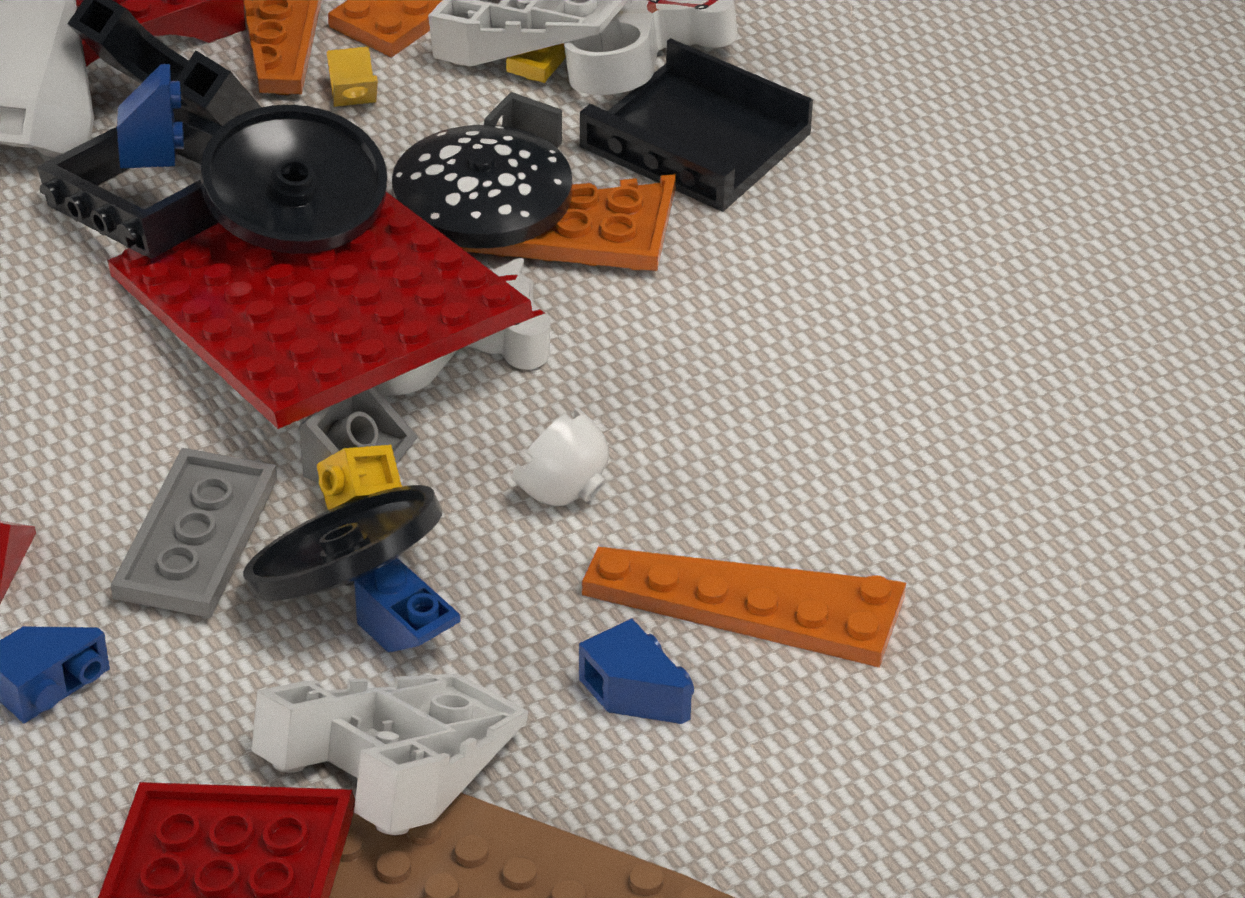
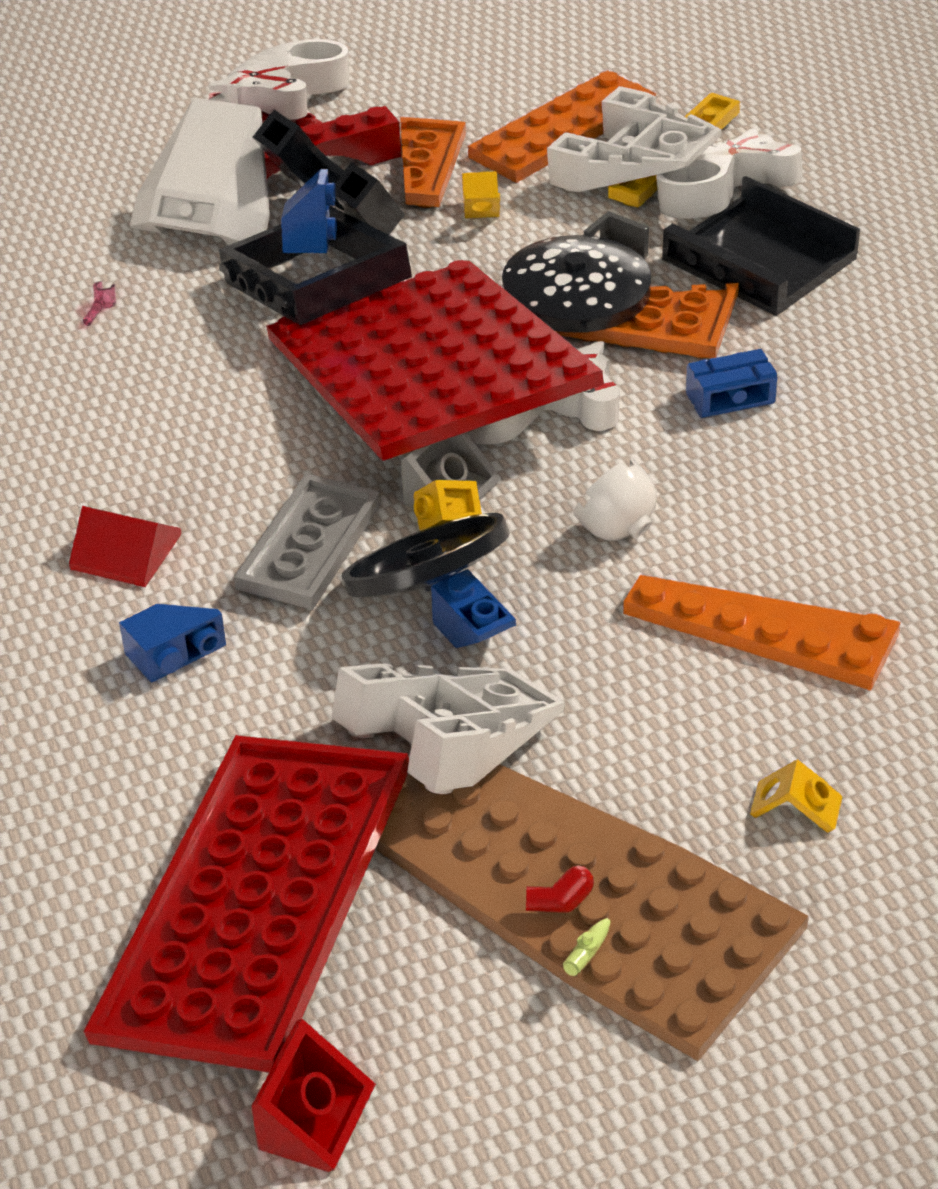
camera: 10 degrees right, 0 degrees up
(293, 179) = (419, 266): black dish -> none
(634, 675) = (658, 680): blue slope -> none
(679, 301) = (731, 383): none -> blue brick
(815, 795) = (803, 790): none -> yellow bracket

